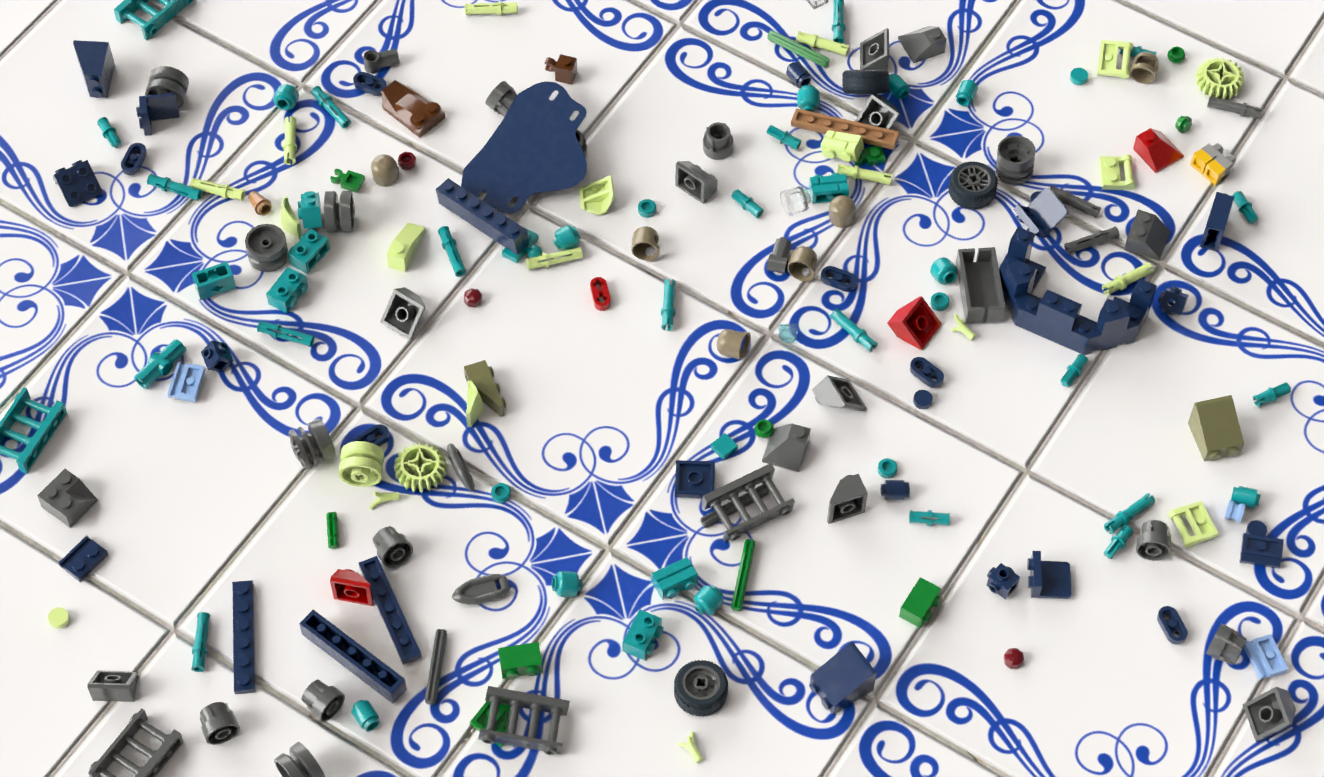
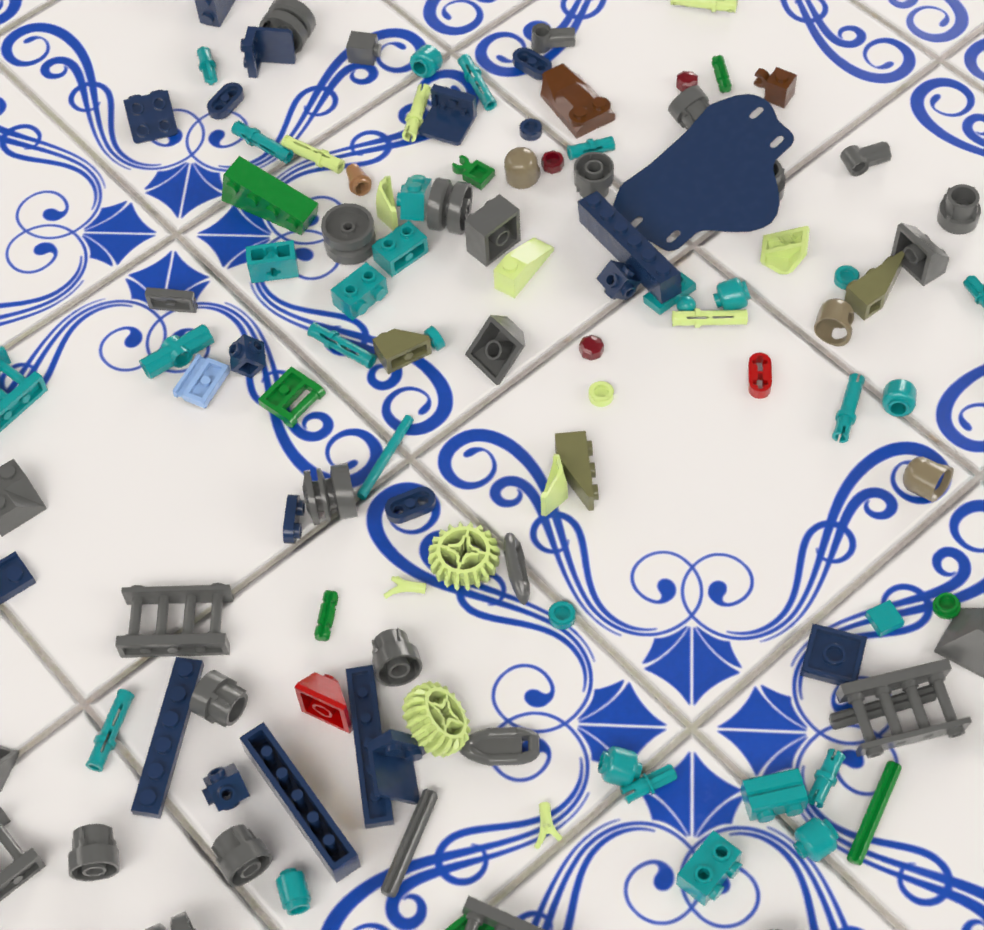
camera: 20 degrees right, 0 degrees up
(143, 325) = (171, 300): none -> dark grey tile
(194, 231) = (267, 197): none -> green wedge
(232, 95) = (363, 48): none -> dark grey brick
(236, 571) = (182, 644): none -> dark grey fence
(253, 377) = (286, 391): none -> green plate
(274, 602) = (218, 699): none -> dark grey piece
(289, 474) = (291, 527): none -> dark blue plate
(297, 660) = (224, 788): none -> dark blue brick
(316, 138) = (449, 116): none -> dark blue bracket
(331, 327) = (400, 348): none -> olive slope
(342, 408) = (385, 457): none -> teal bar
(354, 314) = (436, 339): none -> teal tile
(361, 464) = (385, 534): yellowish green wheel -> none
(376, 223) = (492, 230): none -> dark grey slope
(382, 137) = (530, 129): none -> dark blue tile
(409, 613) = (393, 766): none -> dark blue bracket
(433, 144) = (599, 145): none -> teal pin
(433, 580) = (436, 719): none -> yellowish green gear
(441, 165) = (593, 173): none -> dark grey piece
(449, 245) = (578, 275): teal pin -> none
(481, 243) = (618, 280): none -> dark blue brick
(488, 330) = (601, 394): none -> yellowish green tile
(493, 76) = (686, 79): none -> dark red tile
(518, 65) = (721, 74): none -> green axle
(520, 660) = (527, 864): green brick -> none
(526, 633) = (546, 824): none -> yellowish green bar
(589, 590) = (649, 783): none -> teal axle
(638, 115) = (860, 159): none -> dark grey piece
(666, 215) = (872, 290): none -> olive slope
(702, 290) = (899, 397): none -> teal head
(706, 560) = (825, 778): none -> teal pin

